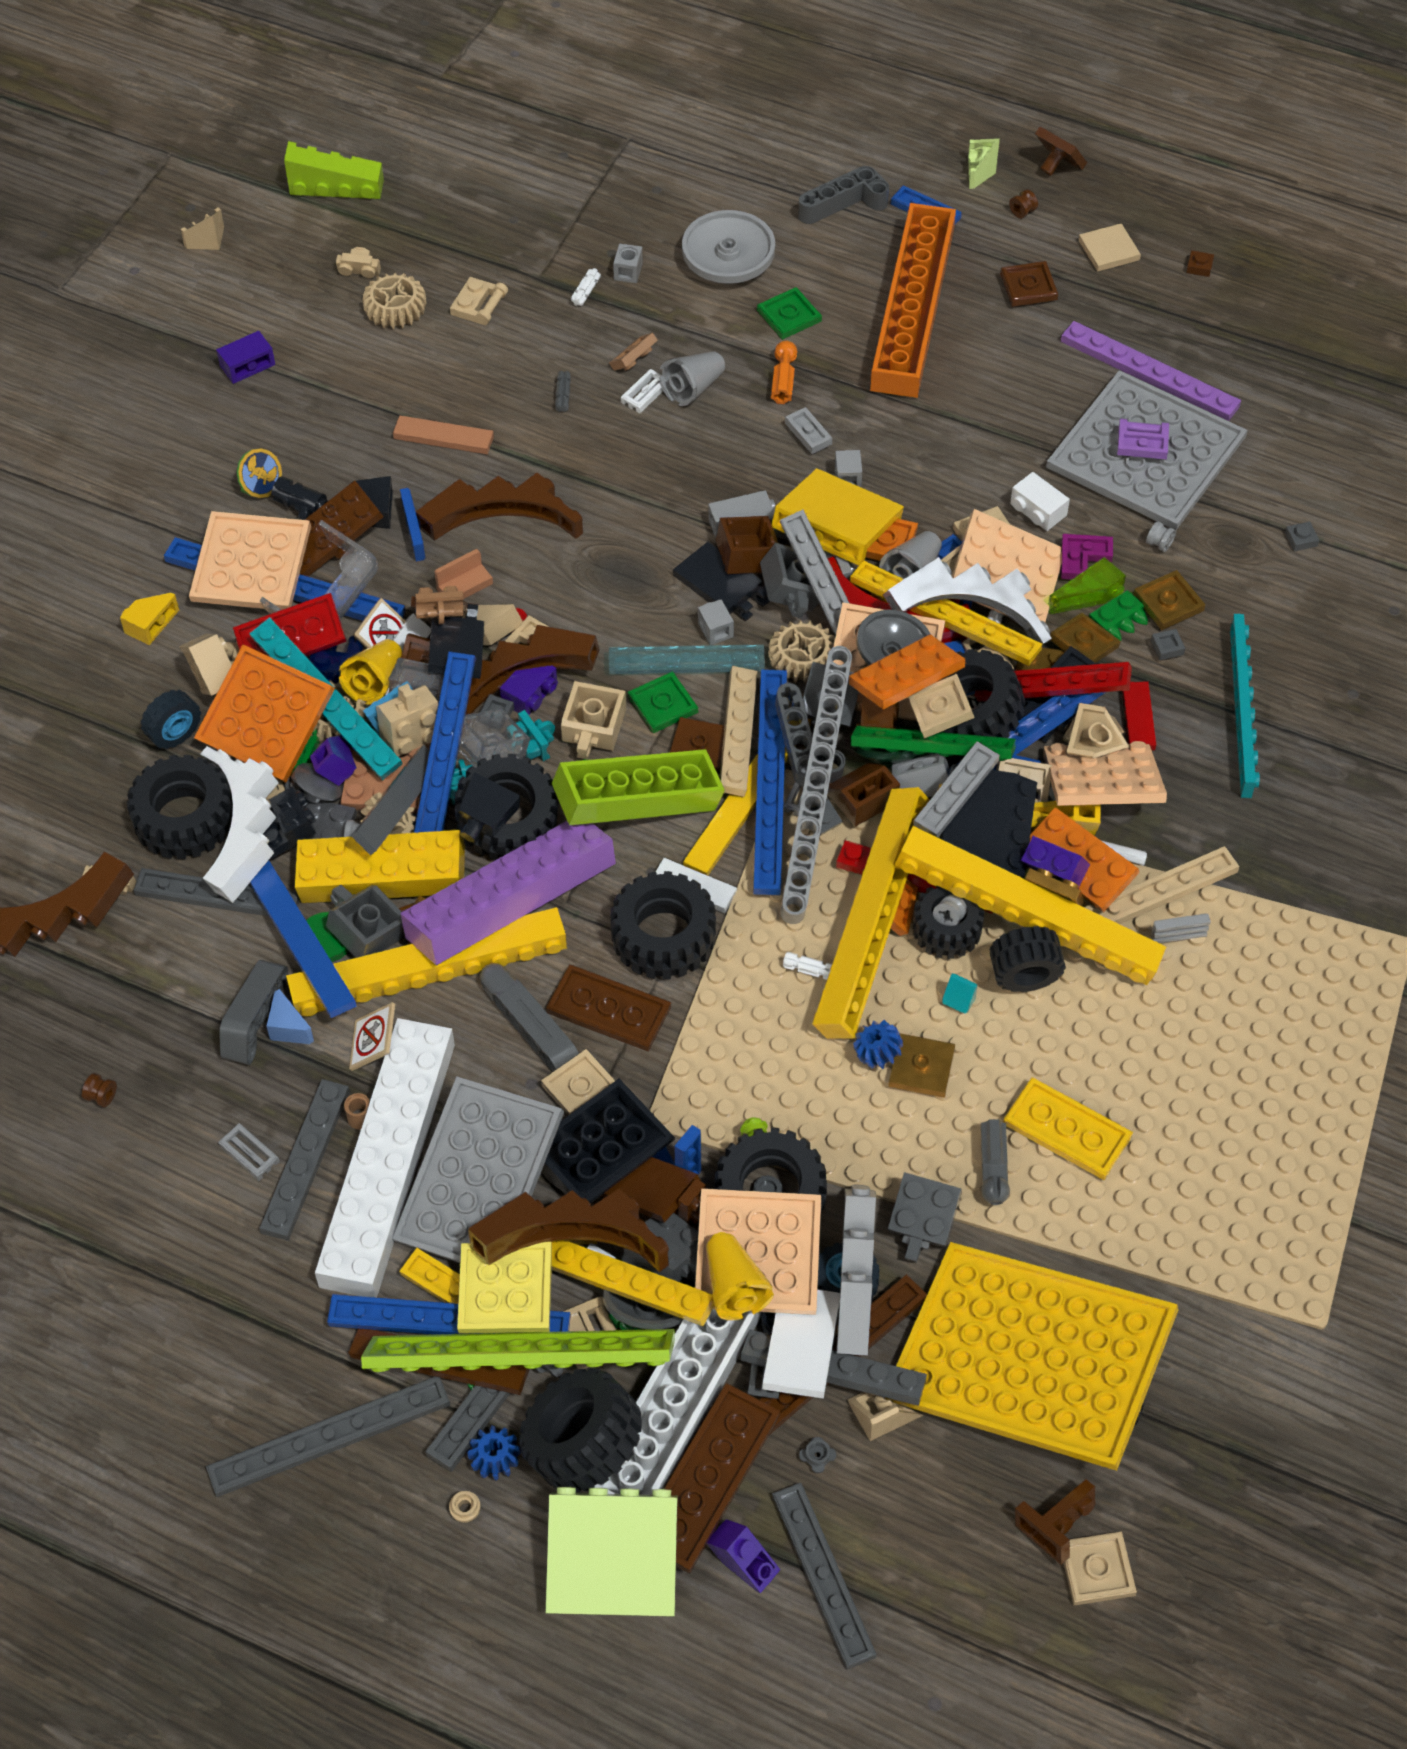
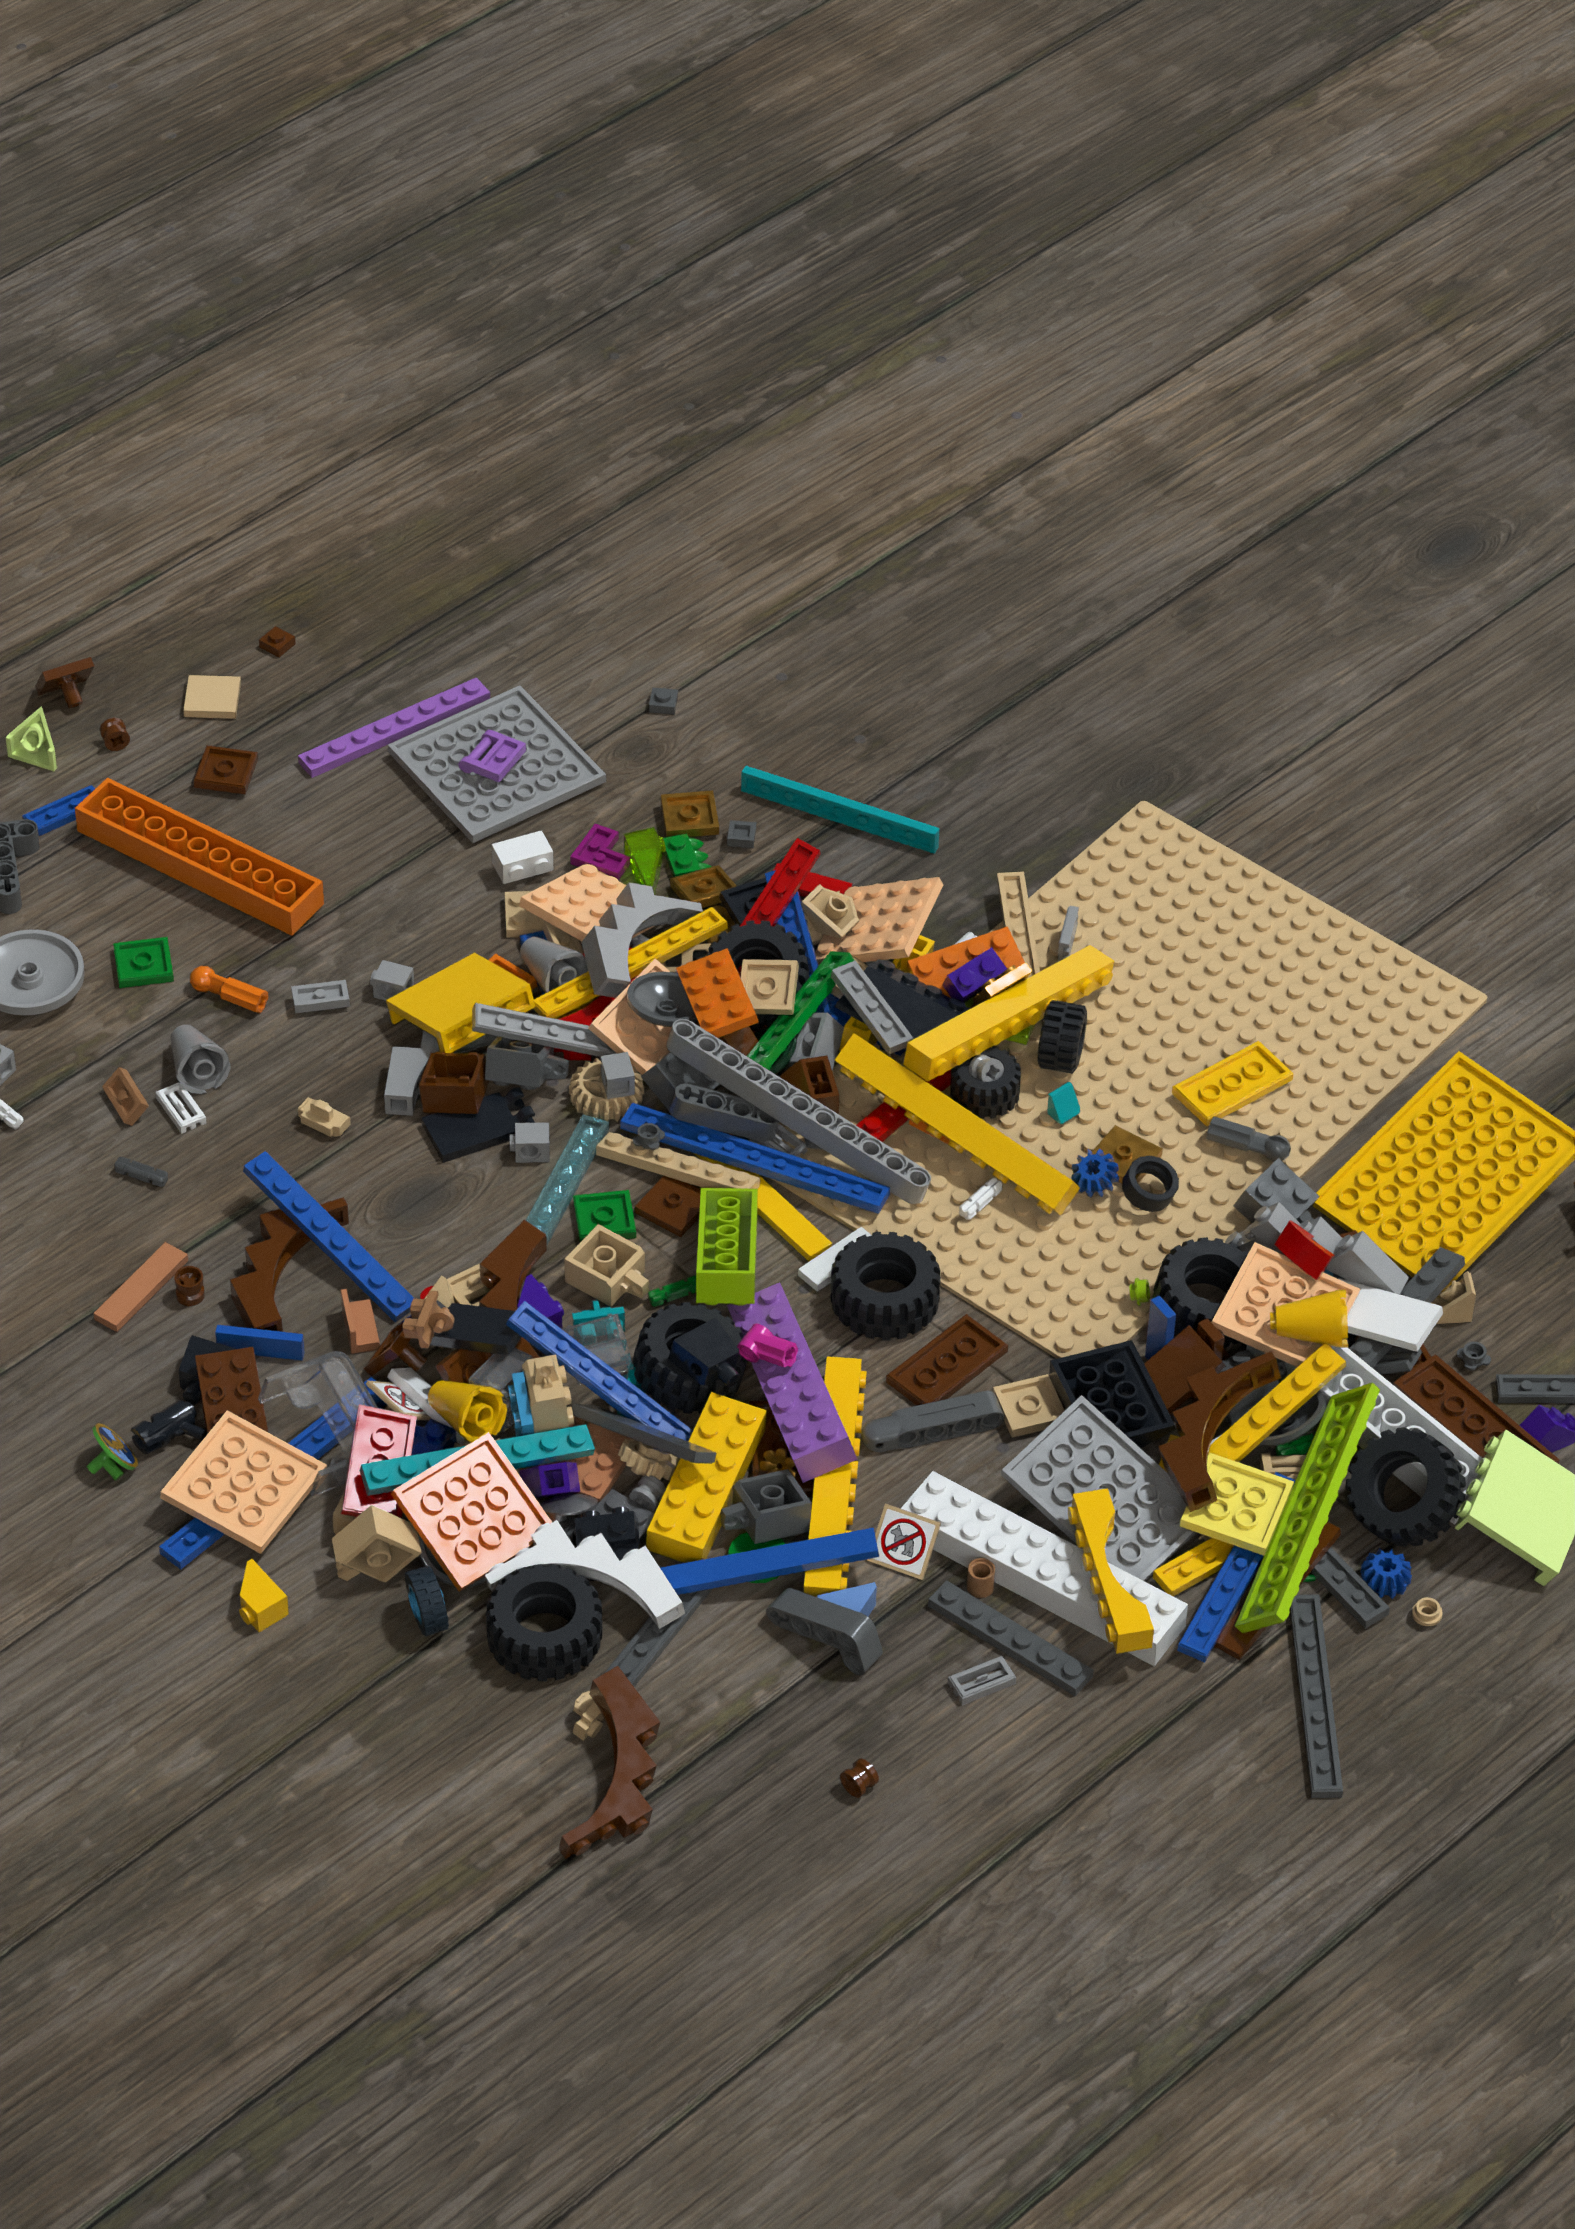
camera: 70 degrees left, 10 degrees down
(422, 1171) = (1125, 1616): none -> yellow arch
(452, 460) = (189, 1286): none -> reddish brown wheel
(517, 845) = (763, 1345): none -> dark pink piece
(535, 522) = (329, 1236): none -> blue plate
(674, 479) = (323, 1118): none -> tan piece
(749, 693) = (649, 1136): none -> dark grey plate
(802, 645) = (617, 1075): none -> light grey brick
(827, 1231) = (1303, 1250): none -> red slope
(879, 1114) = (1143, 1199): none -> black tyre
(1161, 536) = (612, 791): light grey wheel -> none

